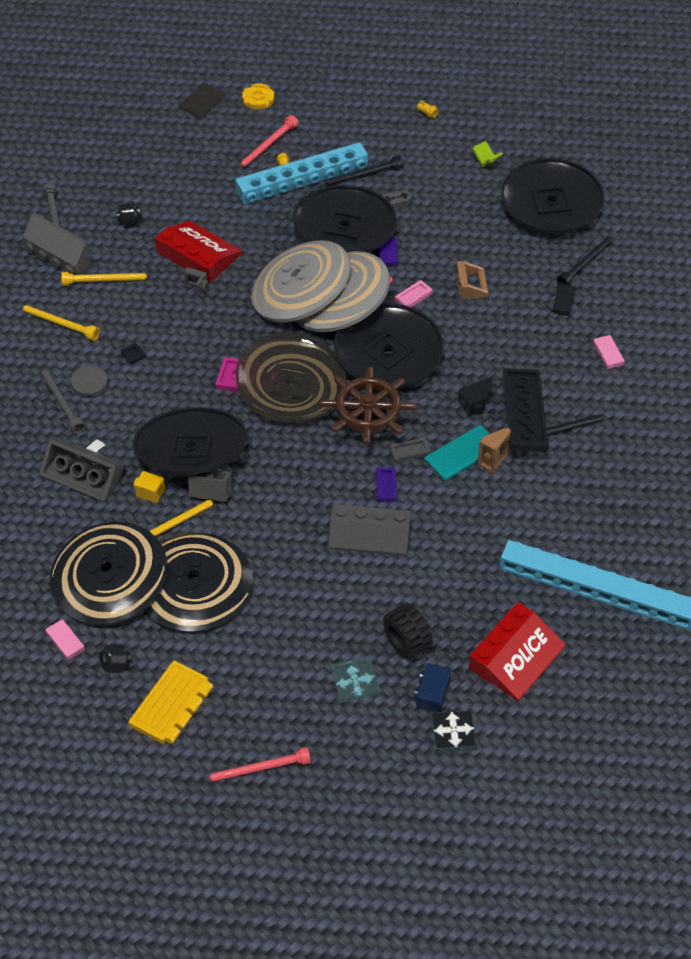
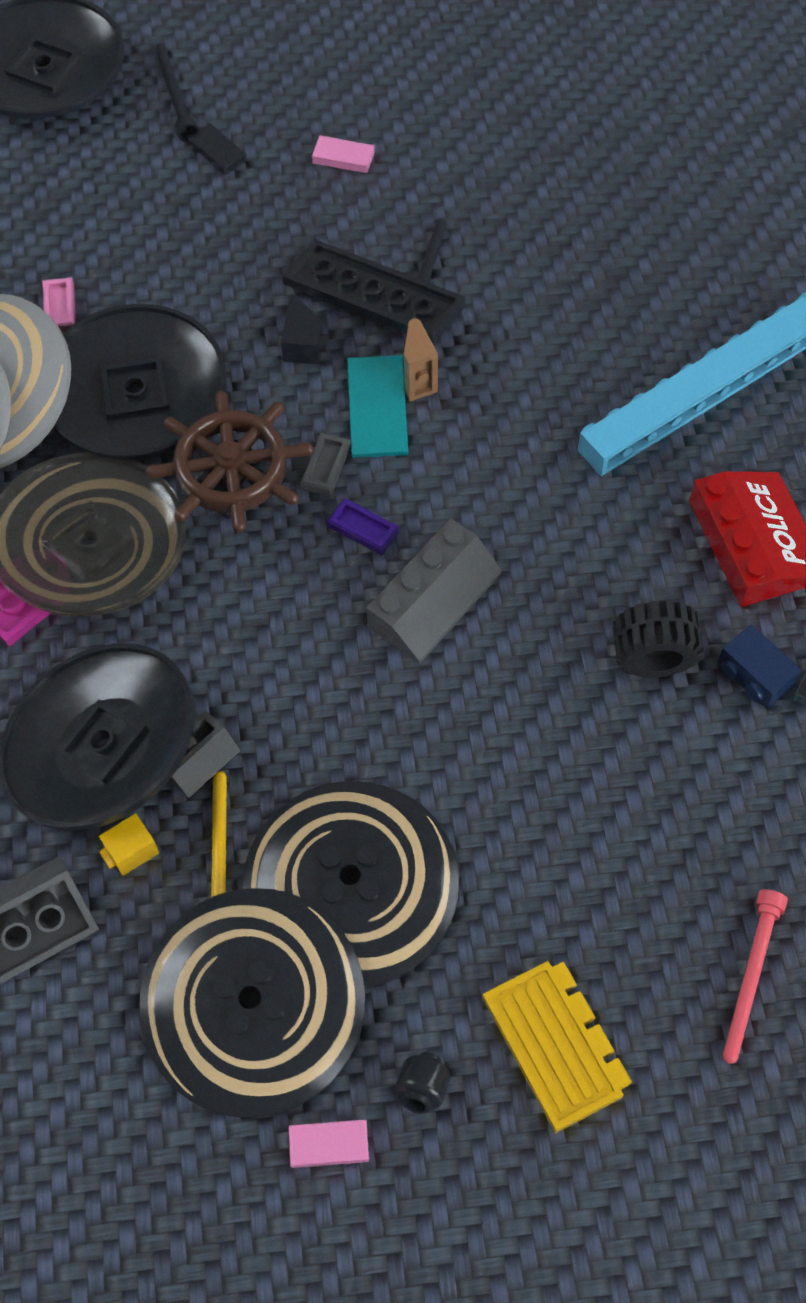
camera: 55 degrees left, 10 degrees up
(355, 679) = (674, 759): clear light blue tile -> none
(468, 291) = (92, 235): medium nougat tile -> none

